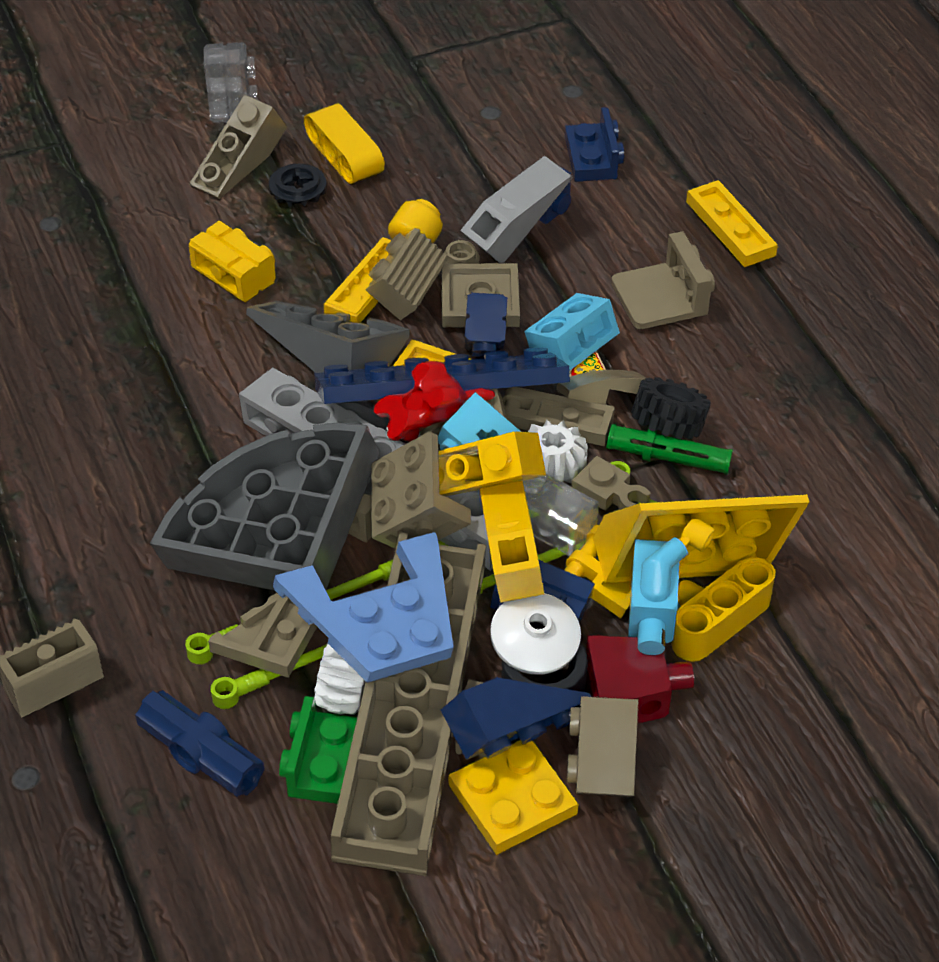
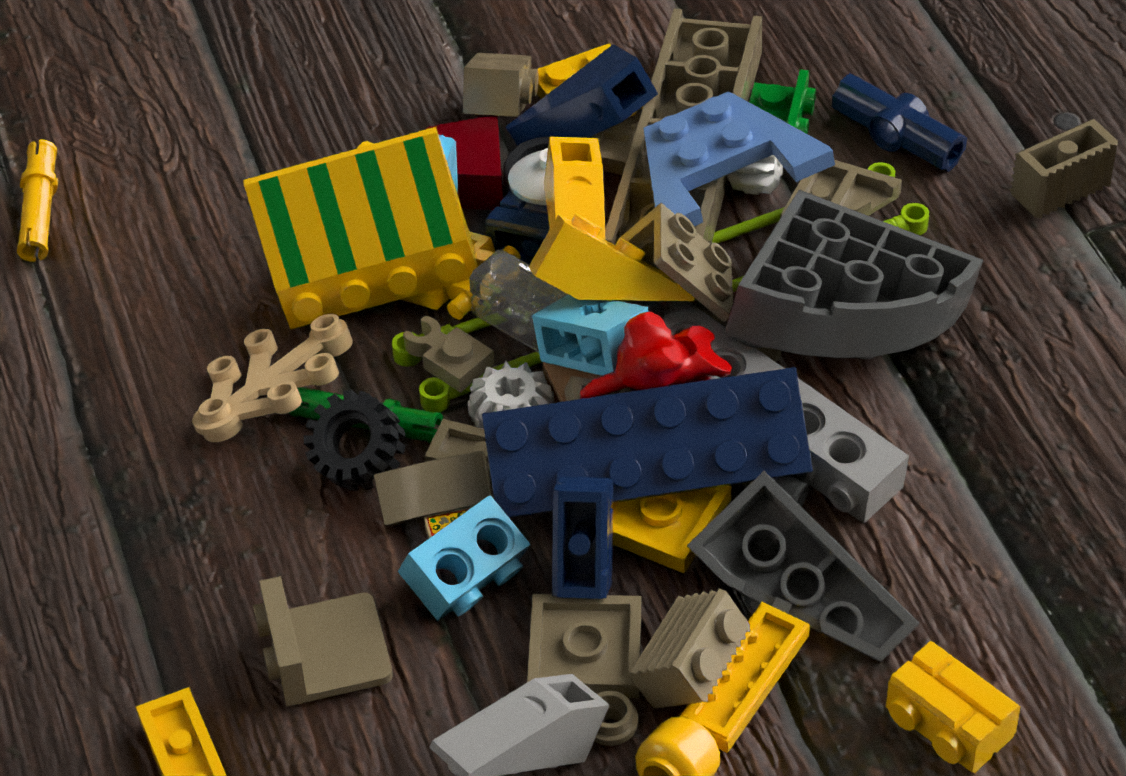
camera: 175 degrees left, 0 degrees up
(758, 465) = (223, 412): none -> tan plant

